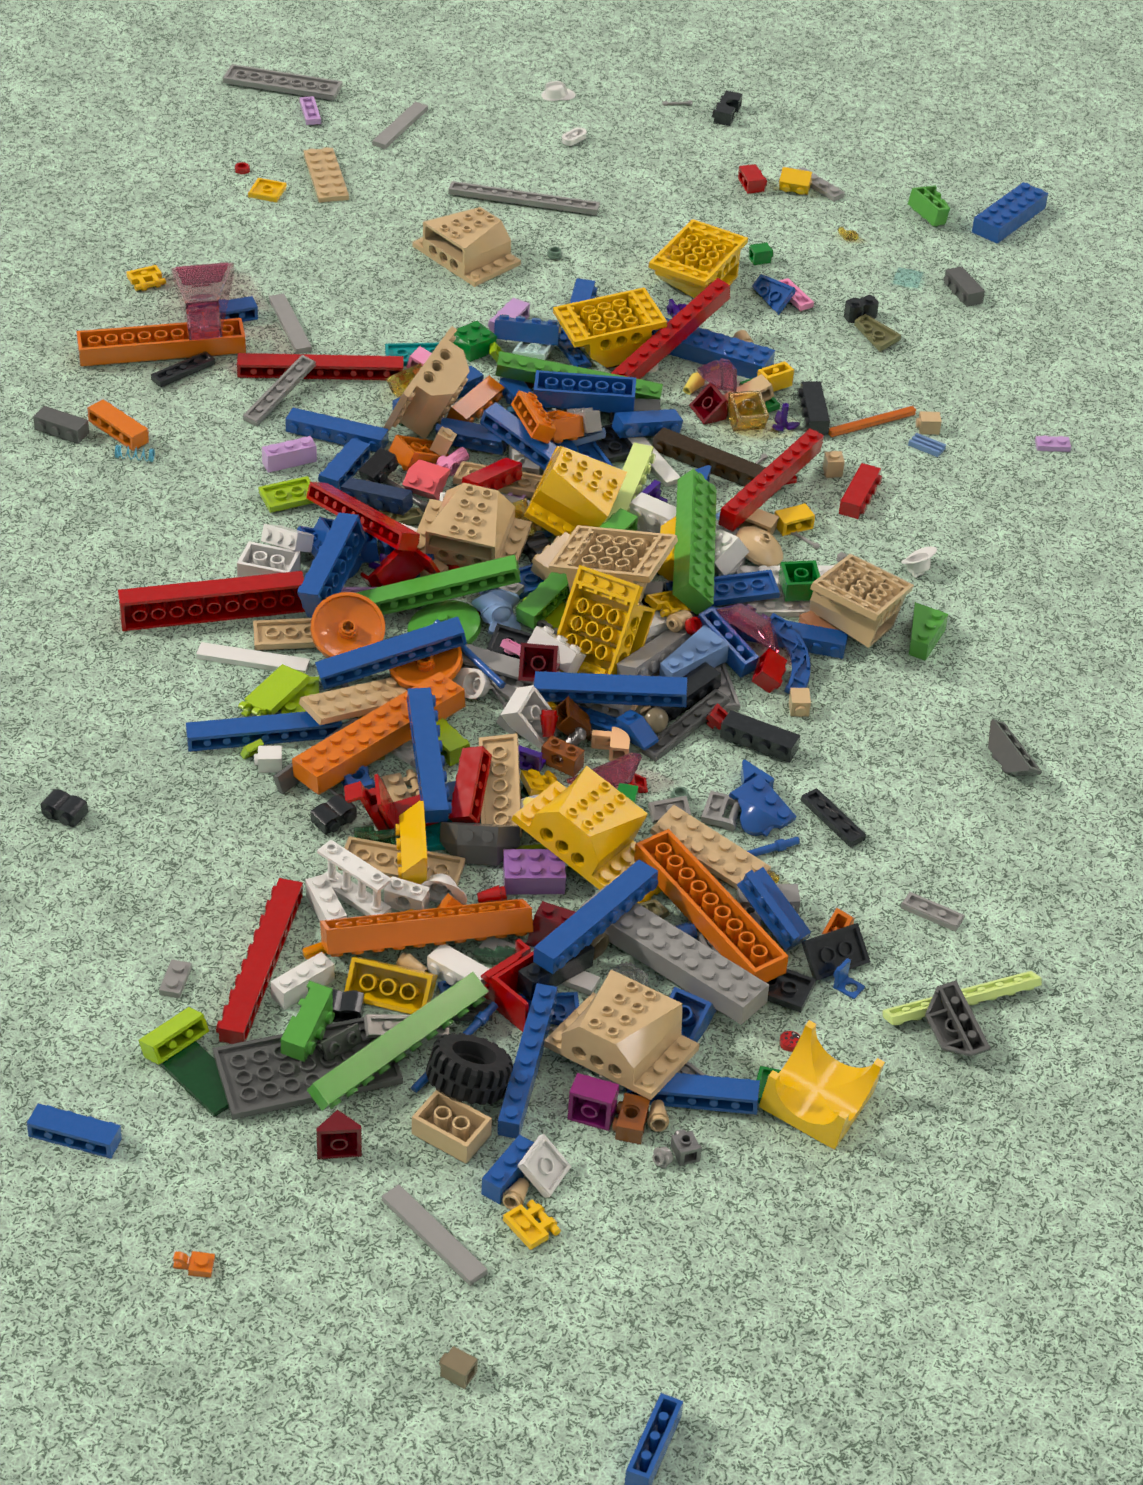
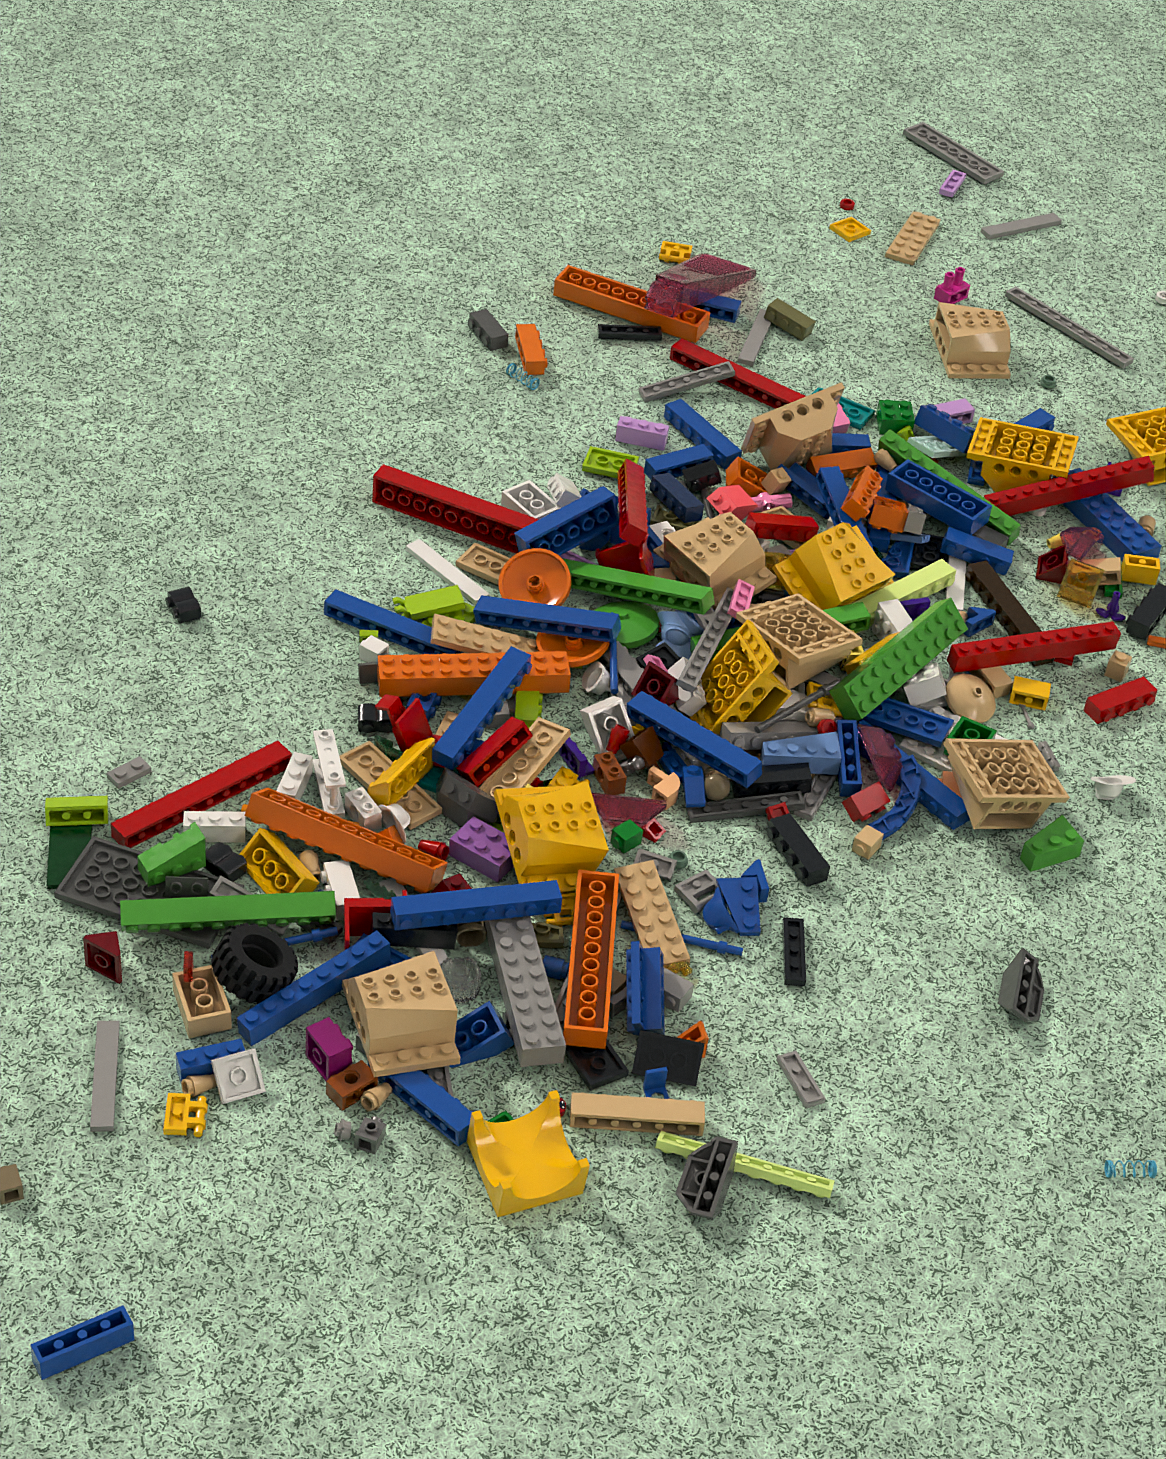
camera: 35 degrees right, 0 degrees up
(305, 294) = (789, 319): none -> olive brick
(406, 206) = (953, 288): none -> dark pink brick
(425, 1102) = (188, 966): none -> clear red tile
(511, 381) = (885, 460): none -> tan cone
(530, 555) = (741, 597): none -> bright pink plate
(544, 604) = (706, 645): none -> light grey plate
(667, 596) = (822, 691): none -> dark grey bar
(858, 1005) = (637, 1114): none -> tan brick

